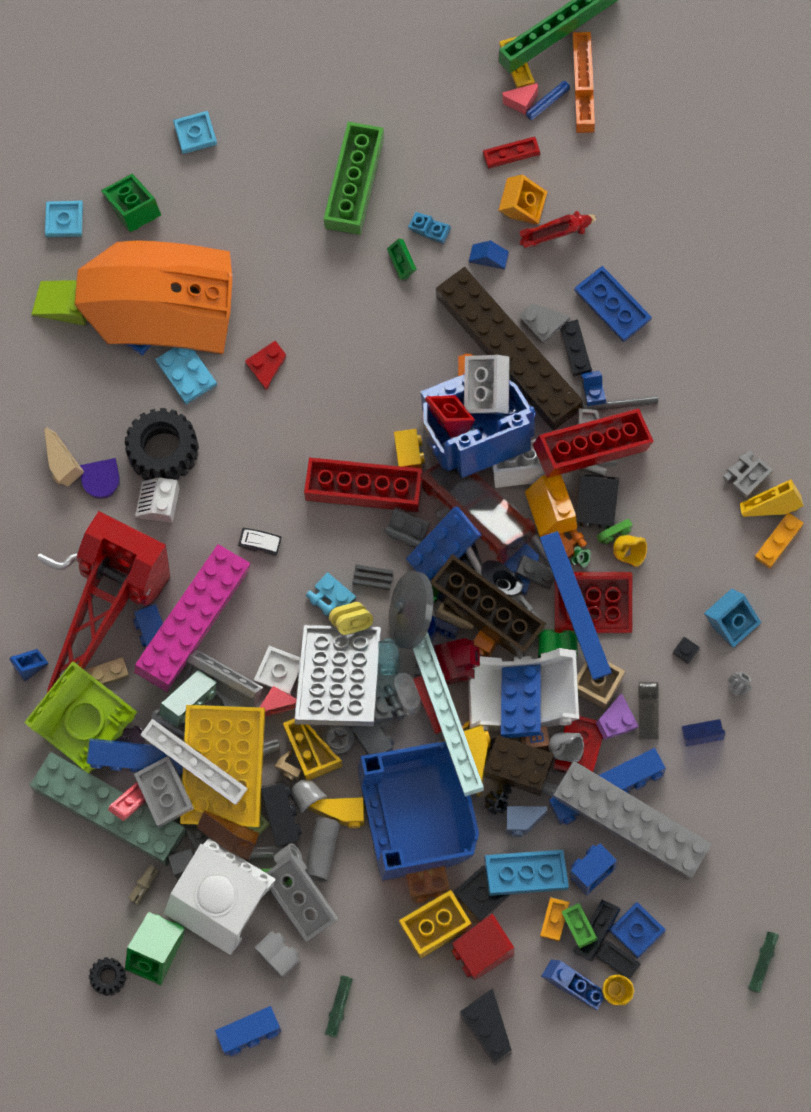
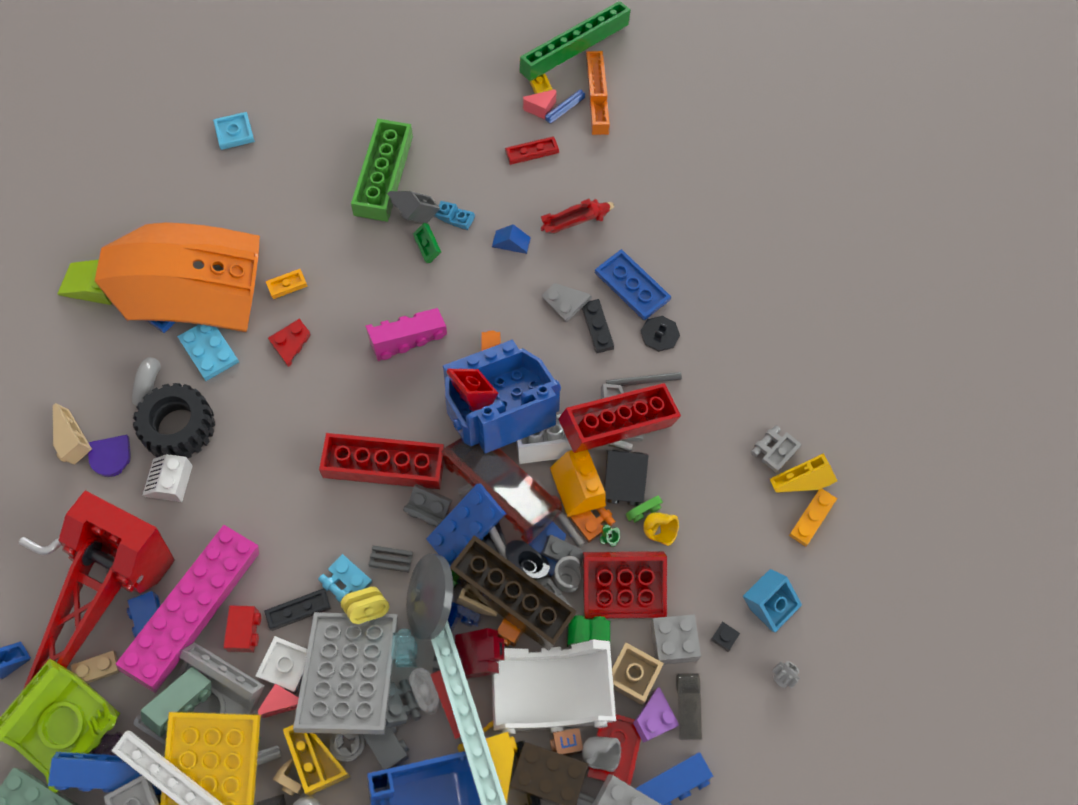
camera: 10 degrees left, 5 degrees down
(64, 219) = (99, 205): medium azure plate -> none
(129, 404) = (145, 379): none -> light grey cylinder
(131, 202) = (167, 192): green slope -> none
(238, 639) = (242, 629): none -> red brick
(259, 540) = (272, 520): slope -> none
(260, 303) = (286, 283): none -> light orange plate
(287, 622) = (297, 609): none -> black tile
(383, 356) = (405, 333): none -> dark pink wedge
(388, 220) = (414, 205): none -> dark grey slope
(407, 448) = (429, 424): yellow brick -> none
(486, 384) = (510, 358): white slope -> none
(501, 336) = (533, 326): dark brown brick -> none
(521, 701) = (550, 700): blue plate -> none
(522, 199) = (543, 190): light orange slope -> none
(539, 592) = (567, 574): none -> light grey hair
(575, 606) = (608, 592): blue tile -> none
(593, 388) = (617, 364): blue slope -> none
(638, 651) = (675, 639): none -> light grey brick
(639, 355) = (660, 333): none -> black piece
(703, 732) = (749, 730): clear blue panel -> none

